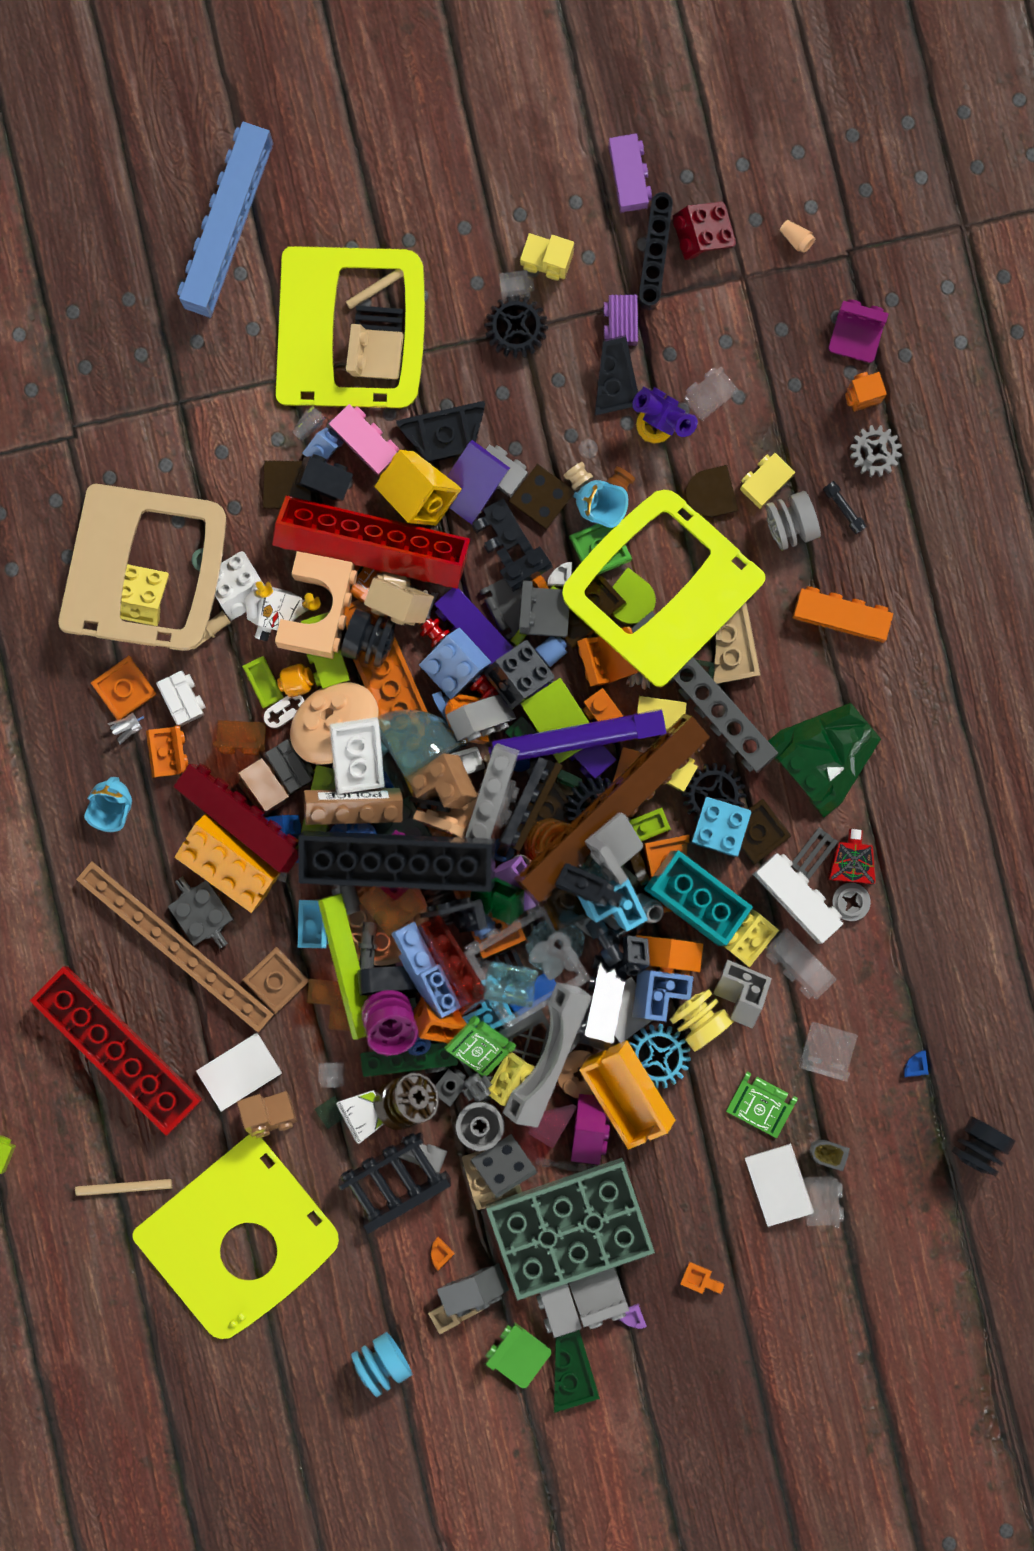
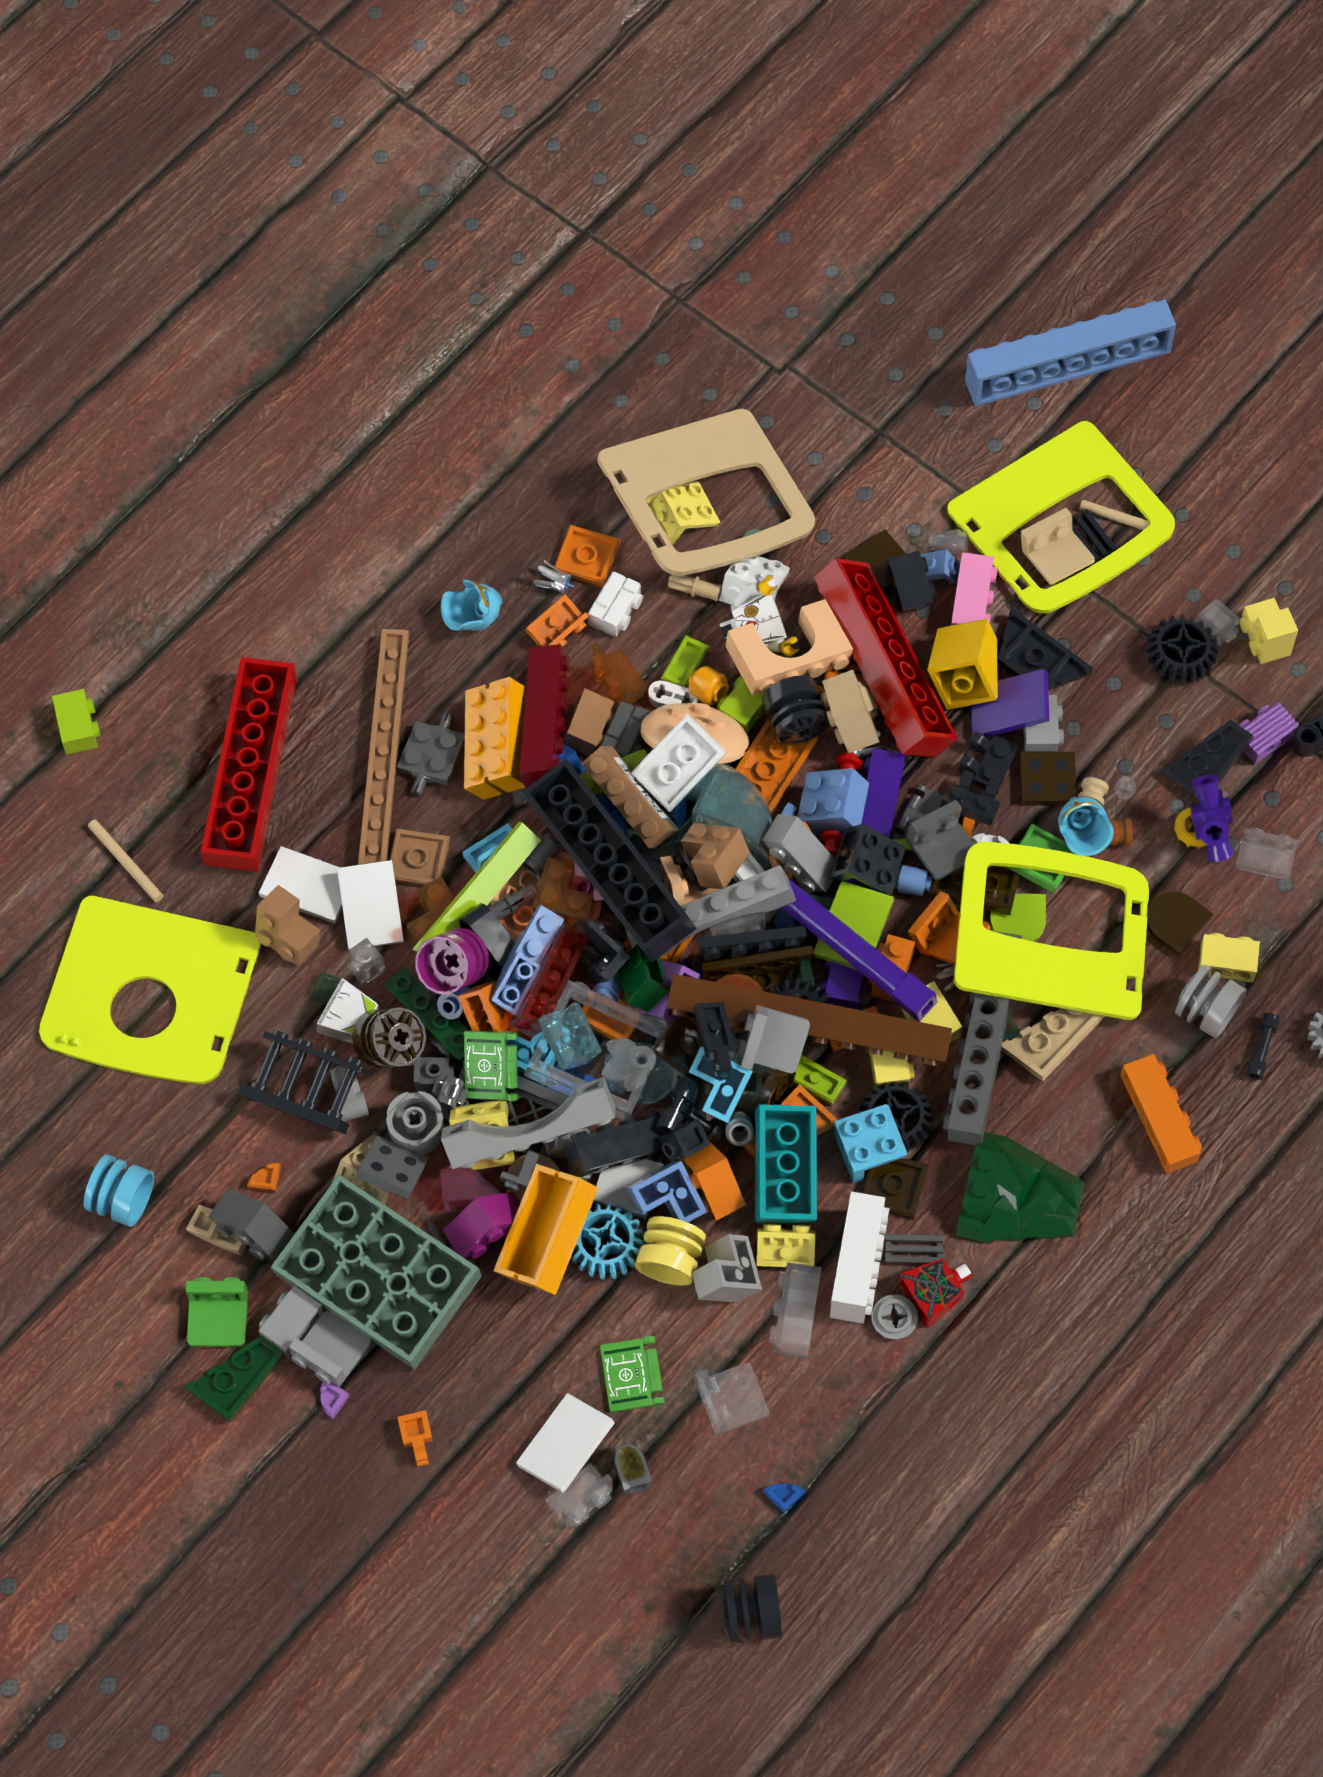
camera: 55 degrees right, 20 degrees down
(290, 1040) = (370, 904): none -> white tile
(578, 1081) = (516, 1183): none -> dark grey bracket

